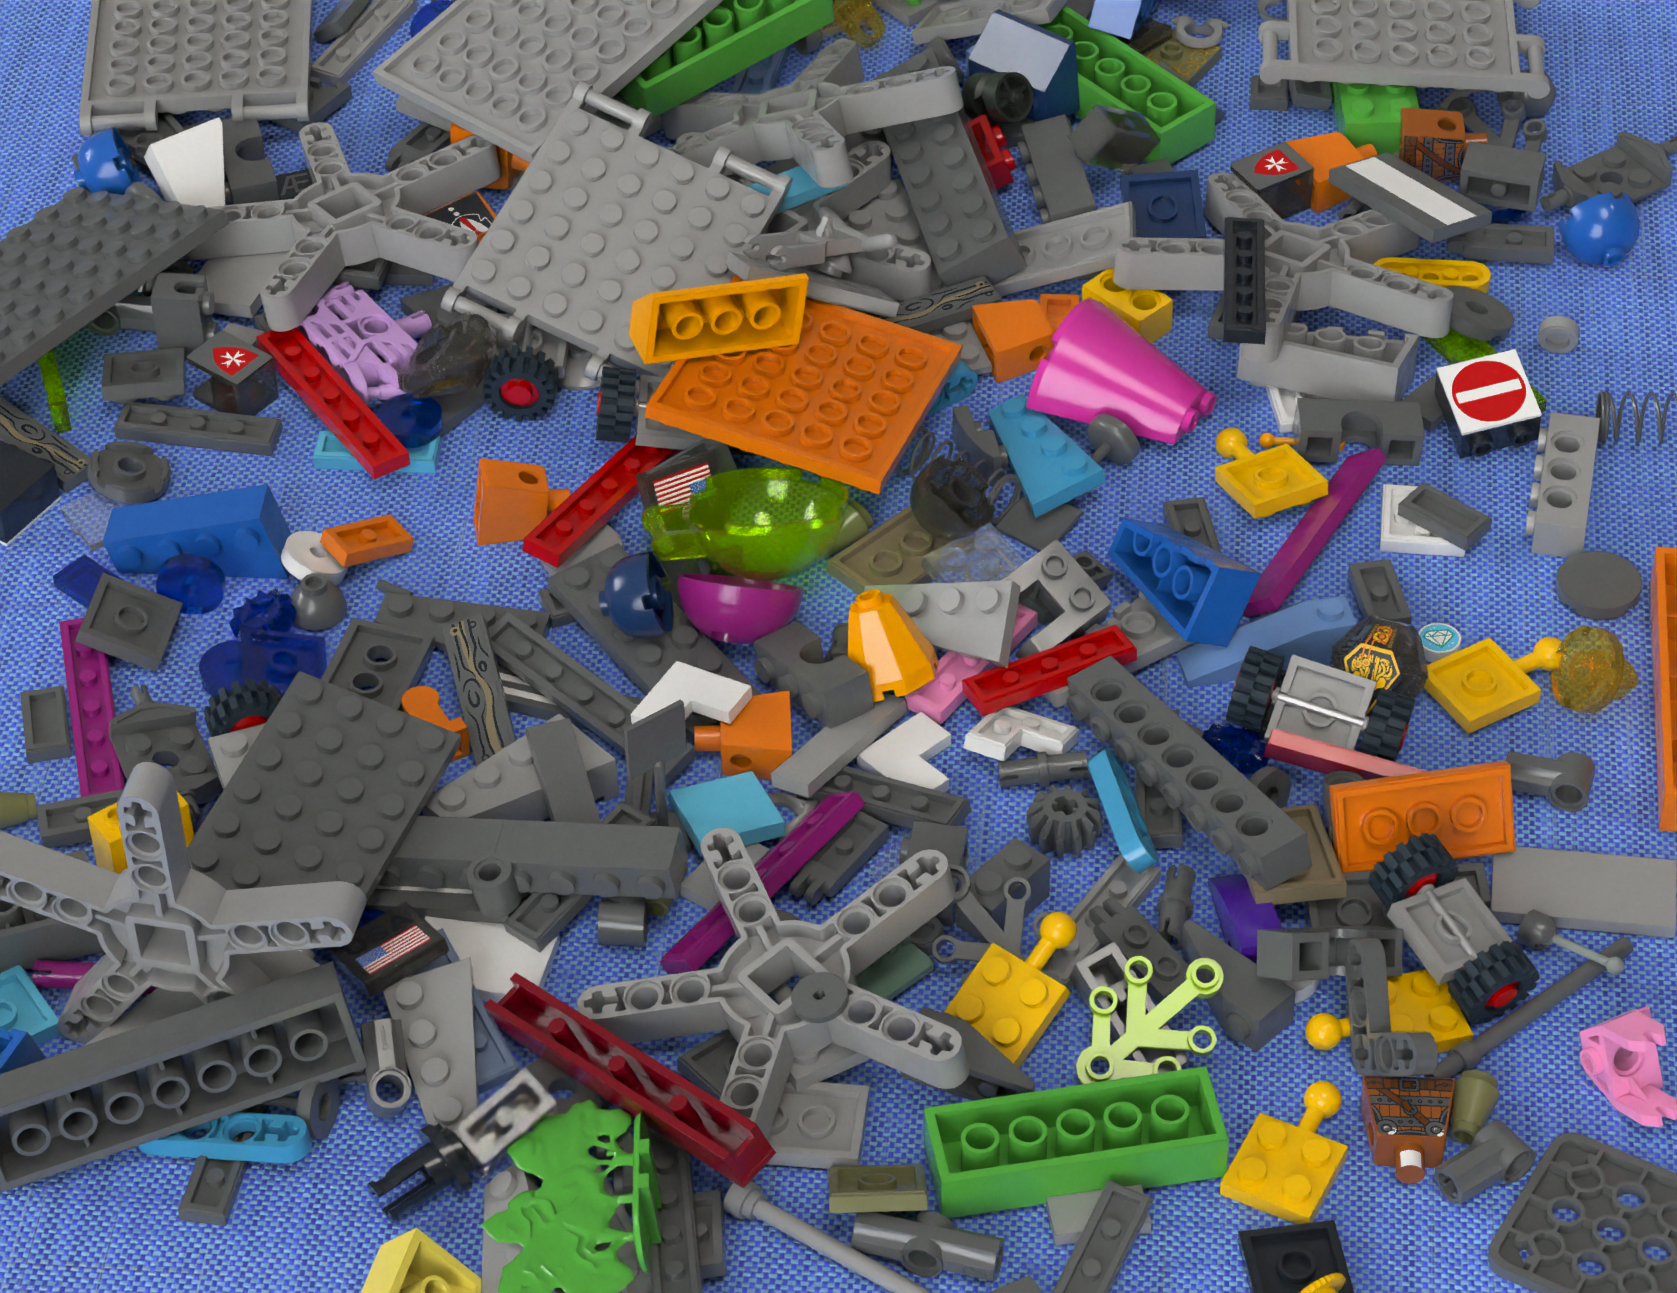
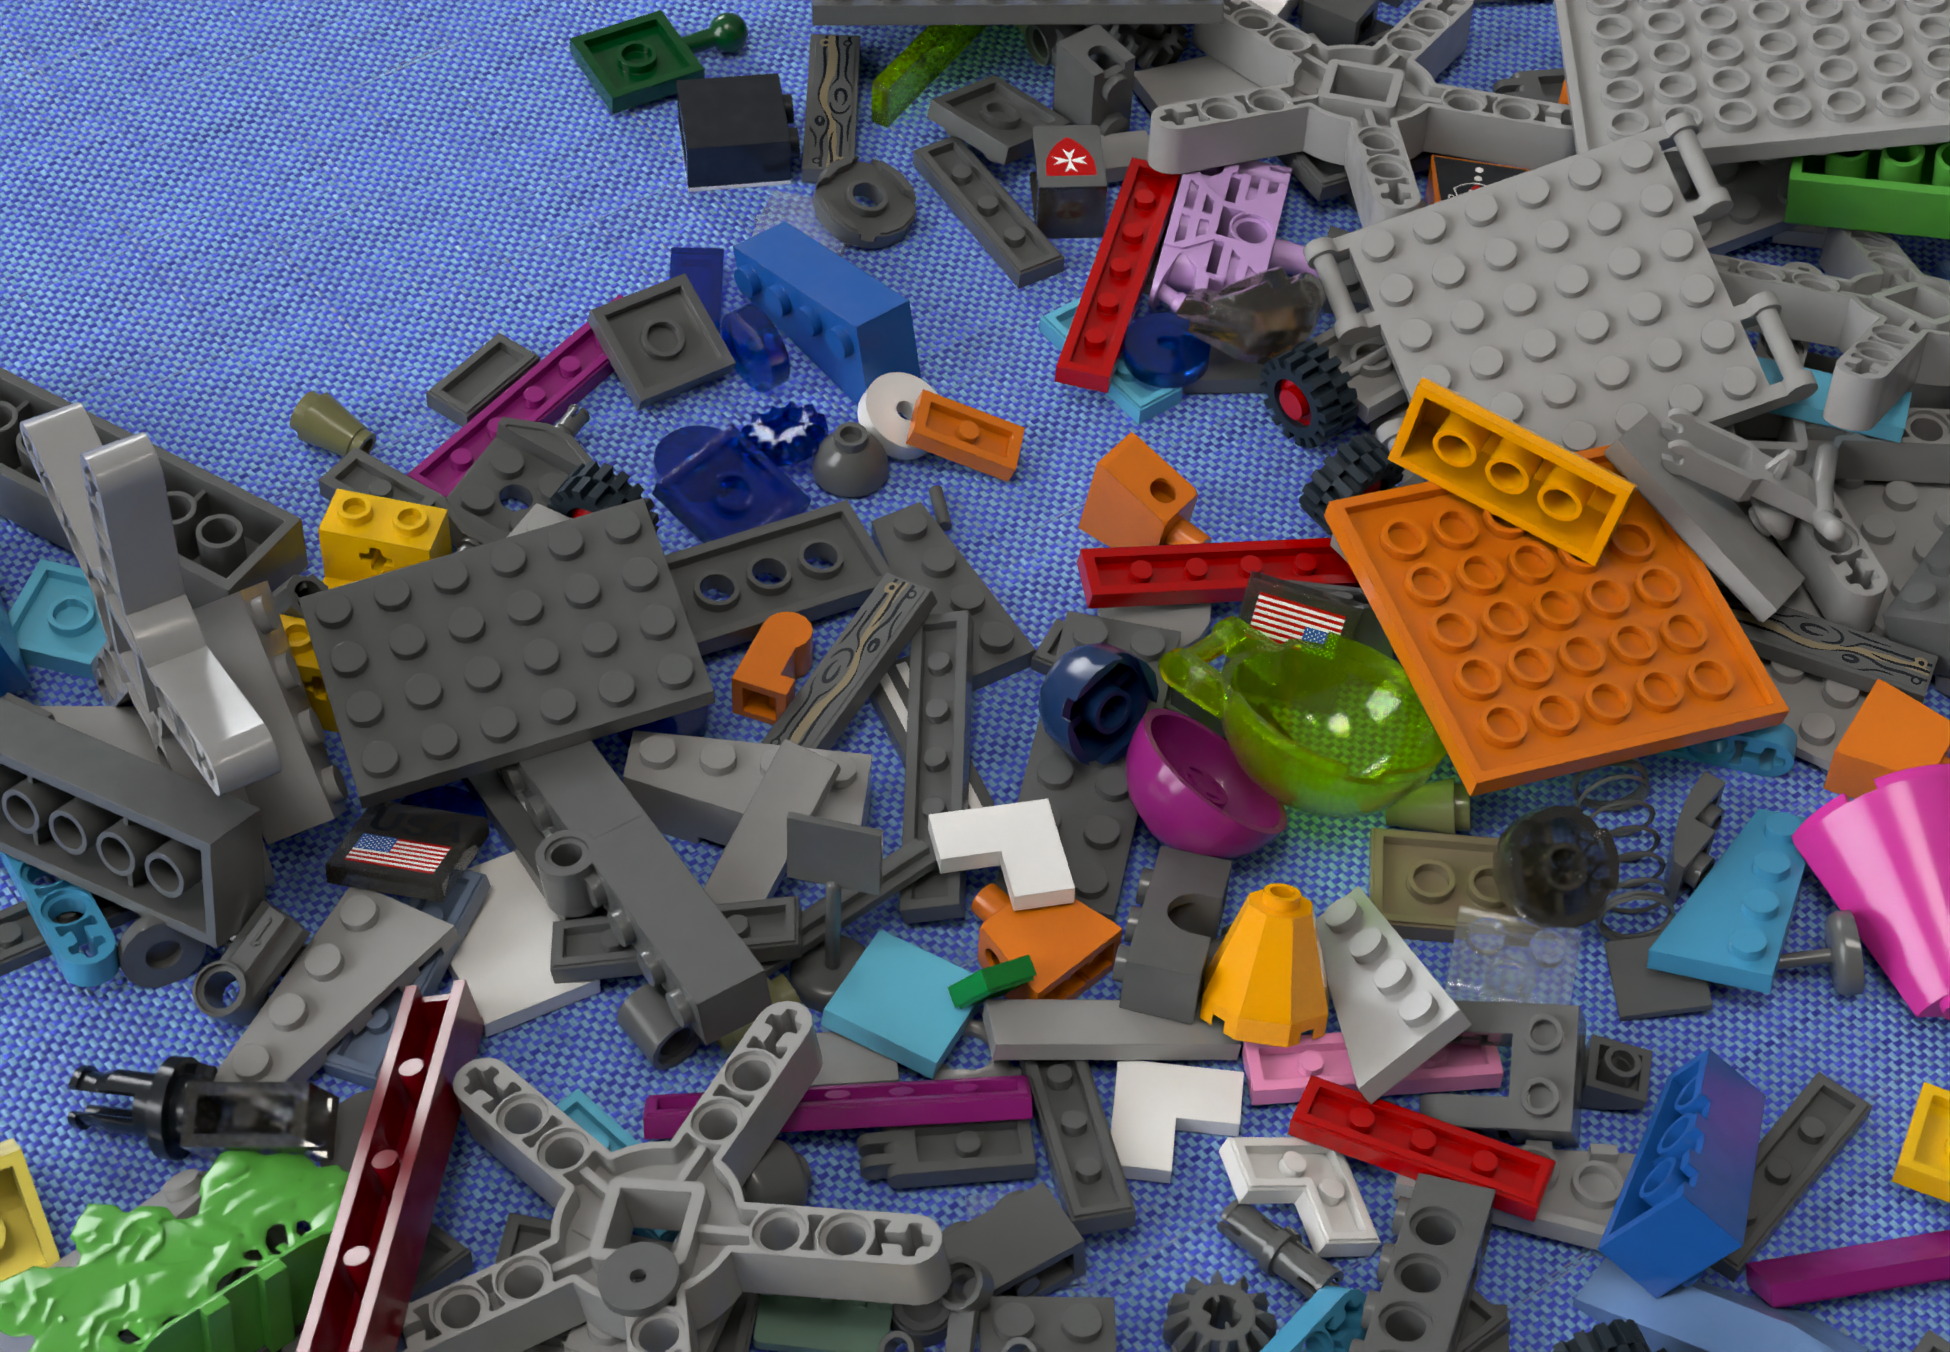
camera: 45 degrees right, 5 degrees up
(765, 762) = (992, 982): none -> green tile

